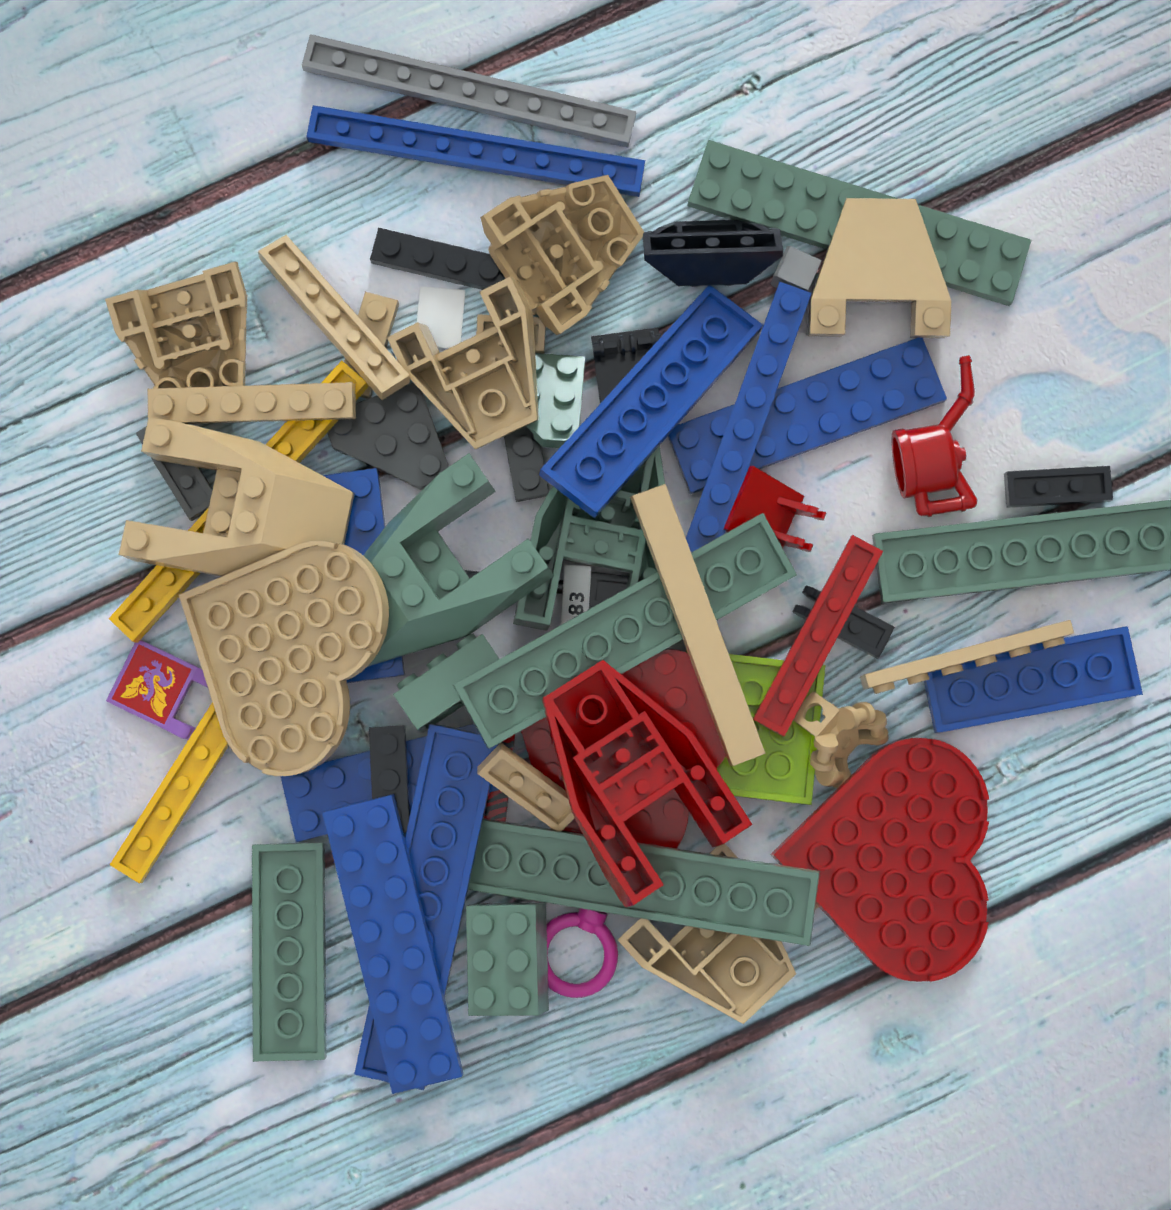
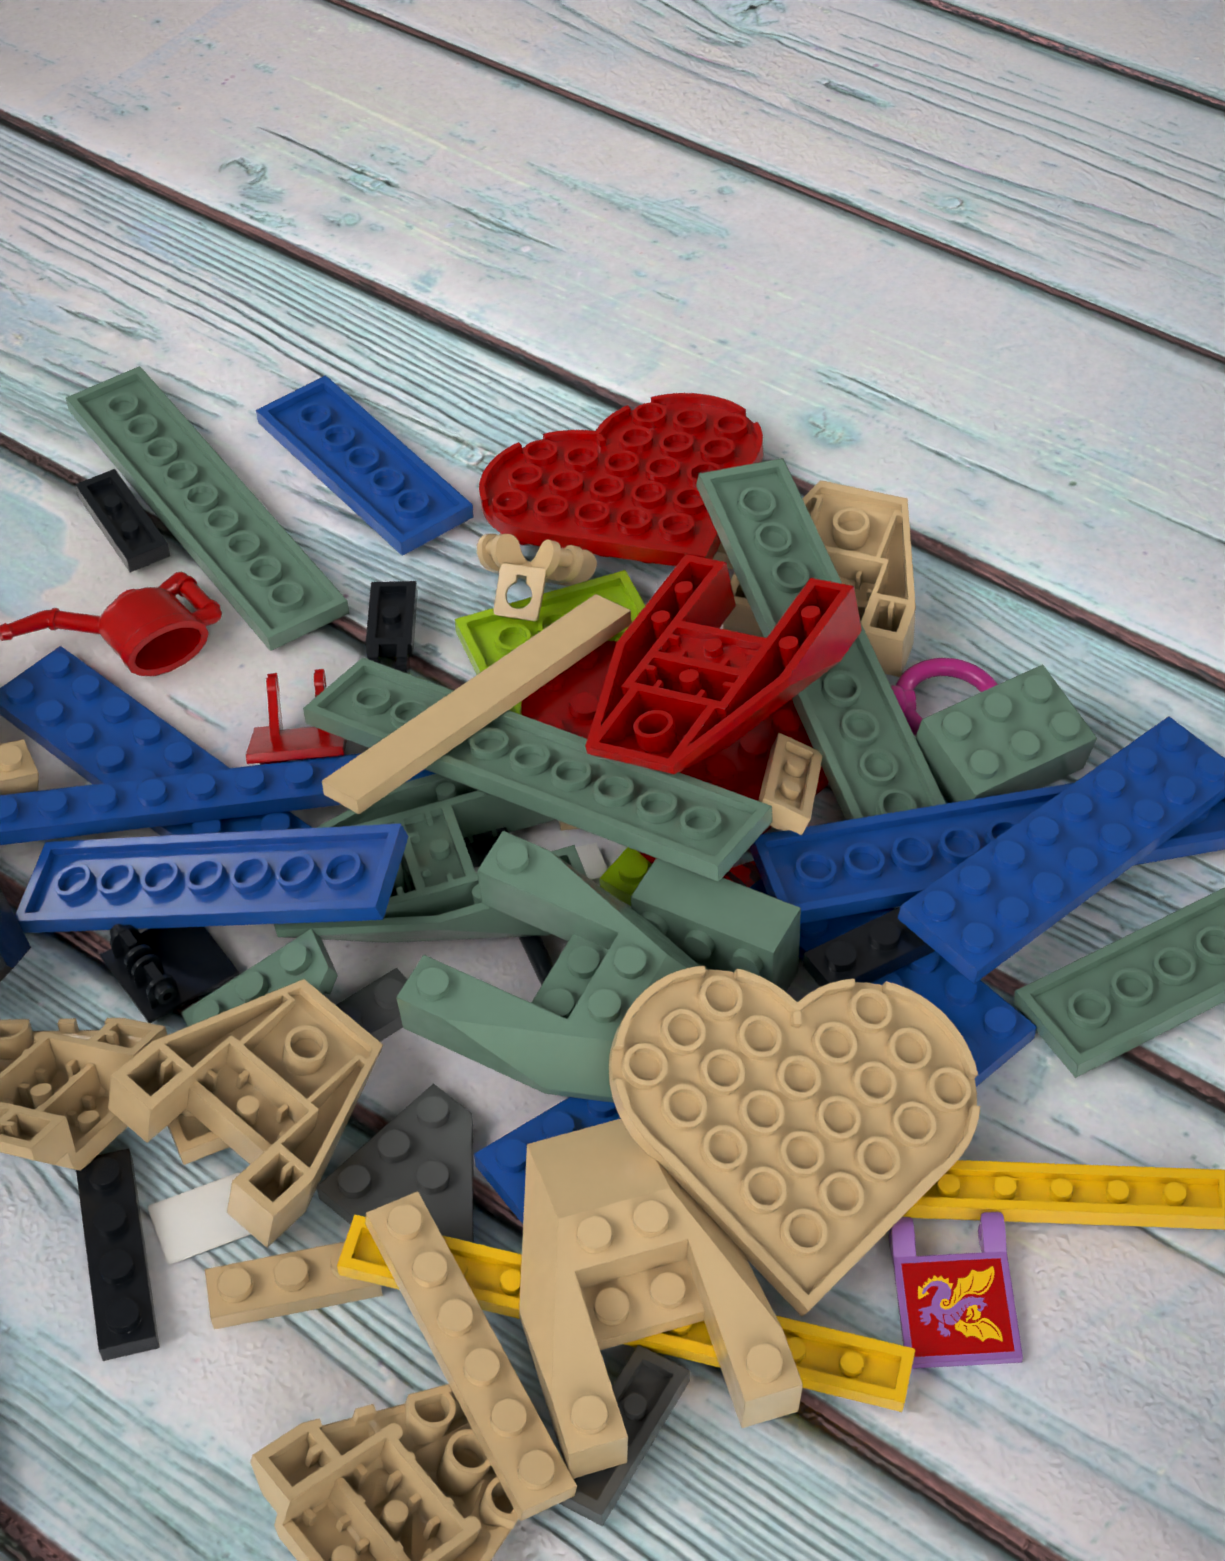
camera: 115 degrees left, 35 degrees down
(334, 317) = (269, 1325): tan plate -> none
(817, 635) = (416, 625): red plate -> none
(981, 653) = (372, 502): tan plate -> none

